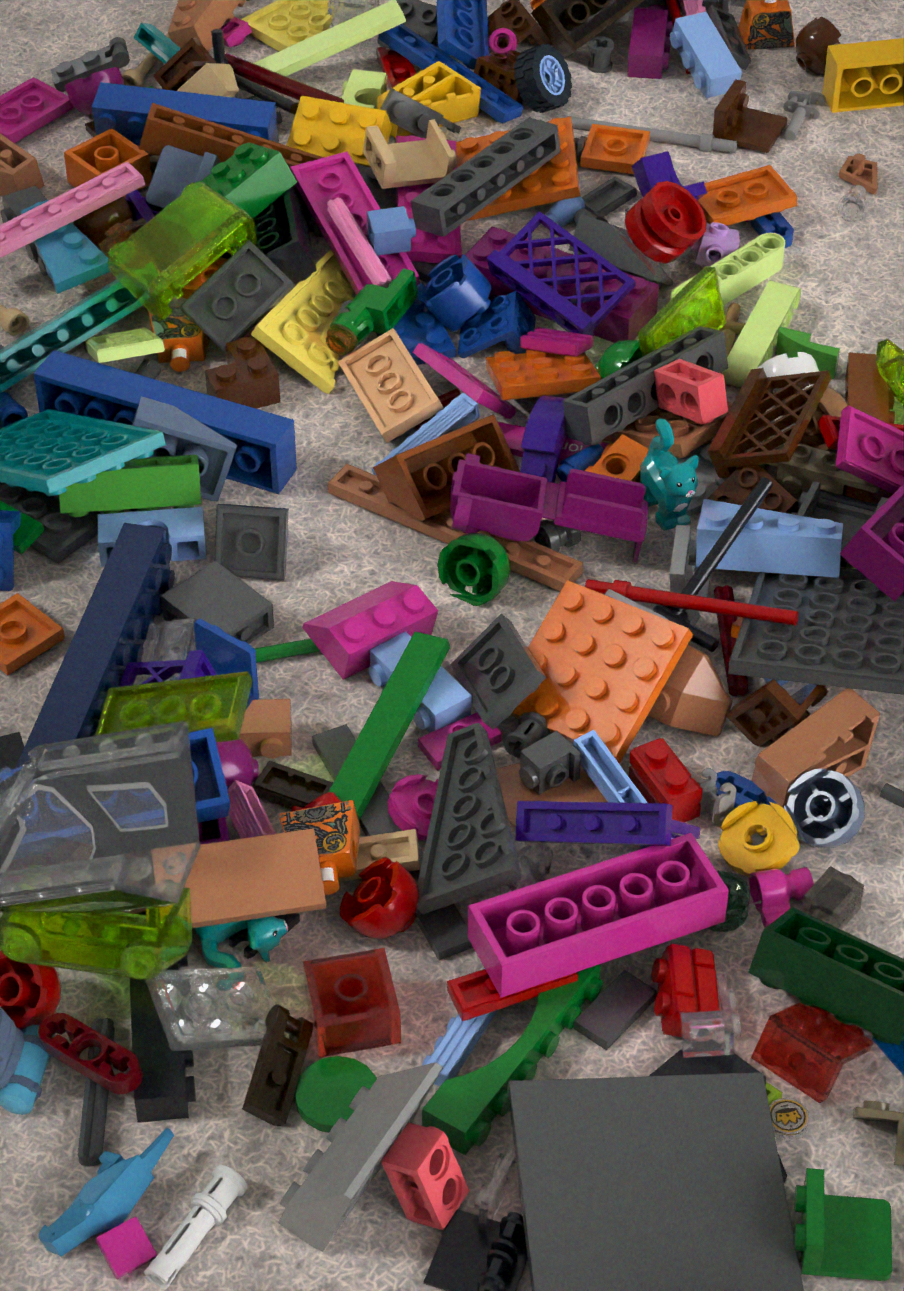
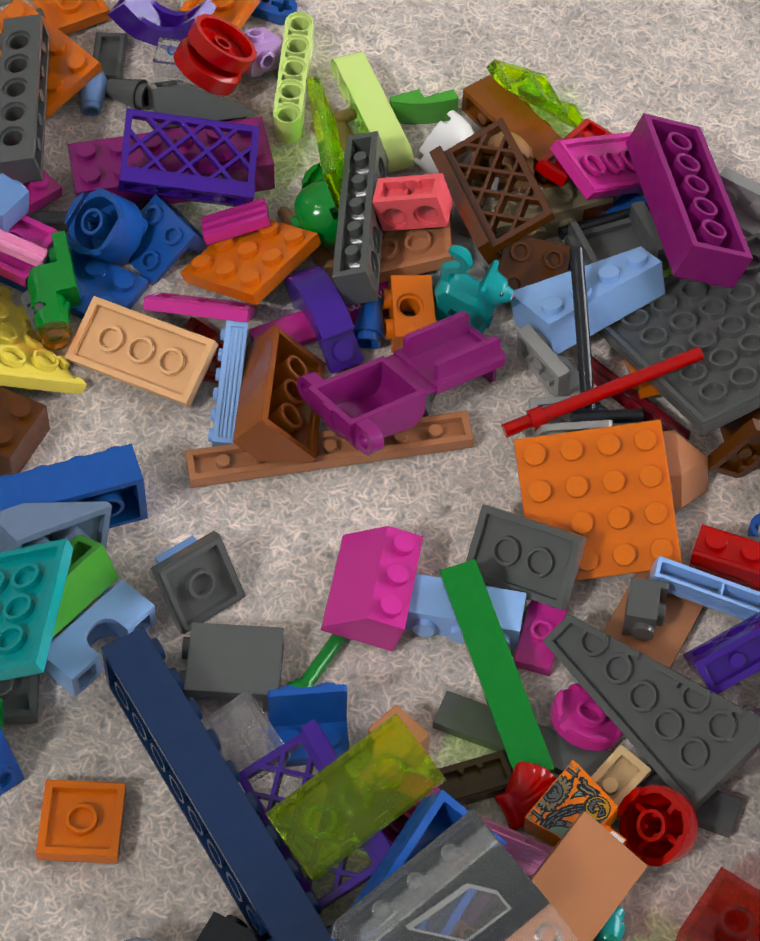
camera: 45 degrees left, 10 degrees up
(474, 562) = (402, 471): green cylinder -> none
(524, 734) = (589, 596): dark grey bush -> none

